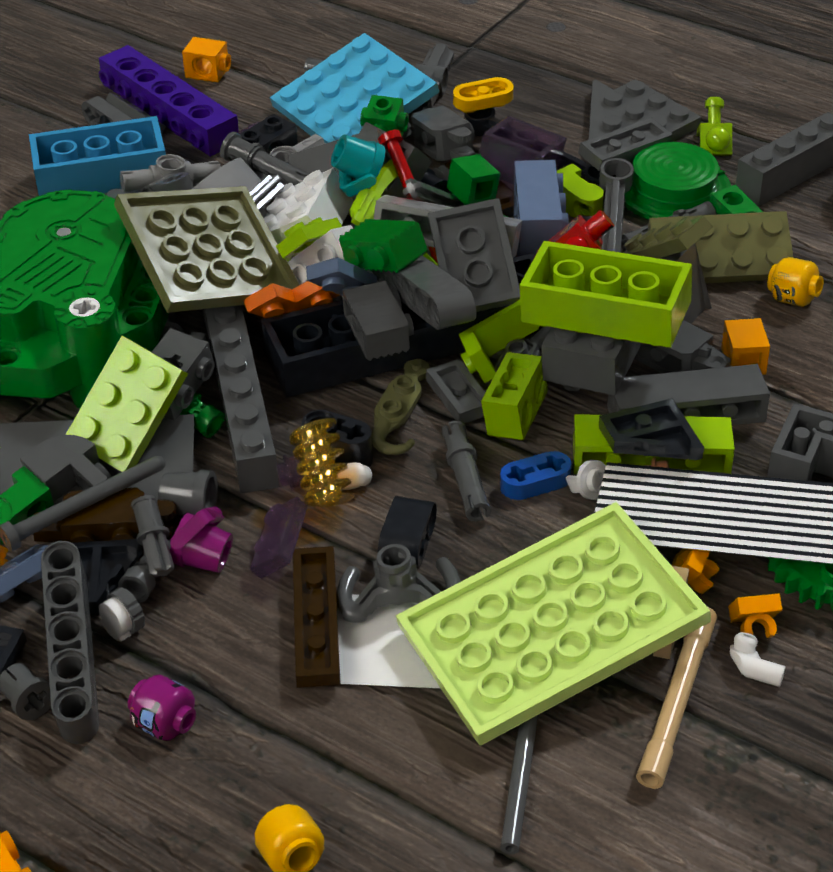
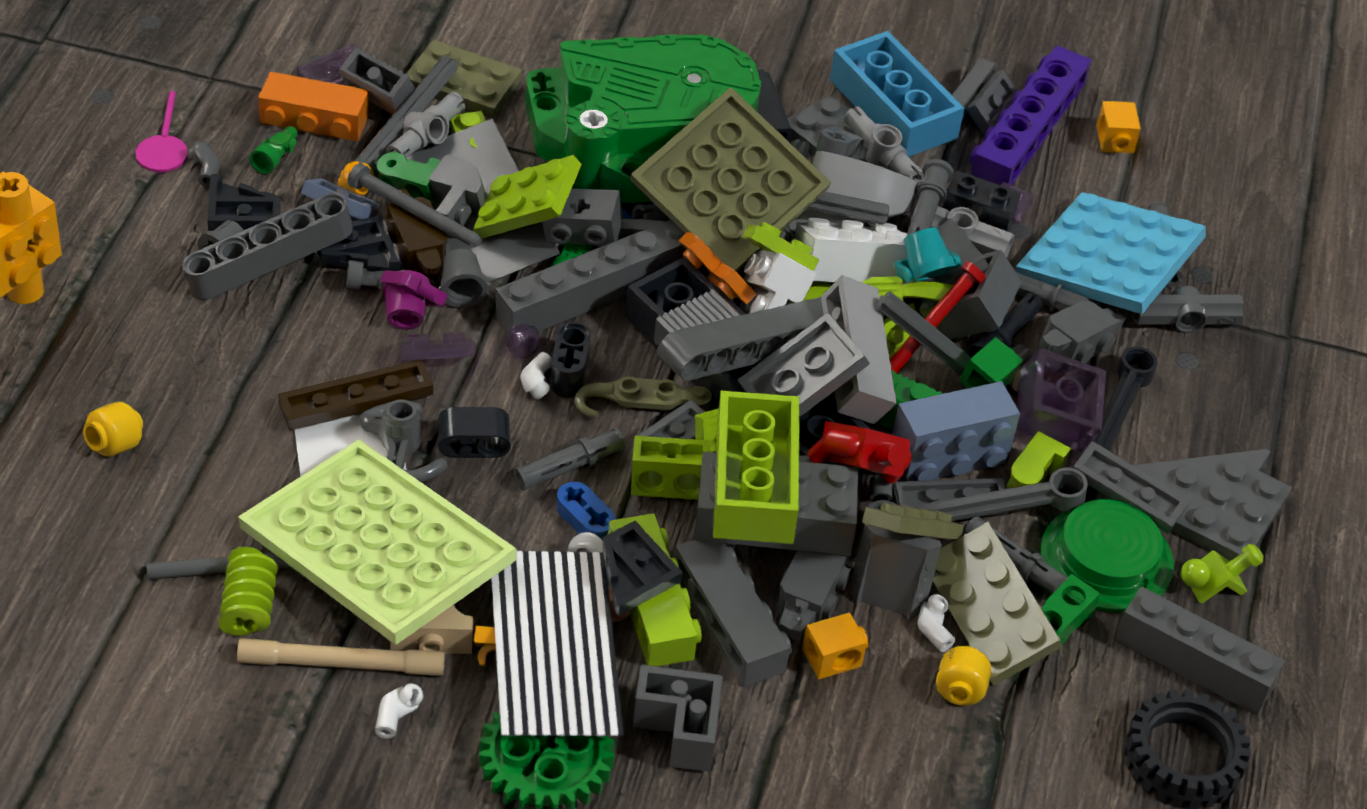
camera: 65 degrees right, 5 degrees up
(121, 614) = (315, 273): piece -> none
(153, 535) = (391, 260): dark grey axle -> none
(162, 707) = (227, 322): magenta head -> none
(318, 464) = (517, 347): clear yellow piece -> none
(338, 275) = (719, 274): sand blue plate -> none
(383, 244) = (770, 294): green brick -> none
(385, 113) = (1047, 276): green brick -> none
(483, 94) = (1157, 350): yellow plate -> none
(581, 749) = (247, 592): none -> lime piece
(730, 292) = (931, 621): none -> white arm
(756, 609) = (453, 696): light orange tile -> none

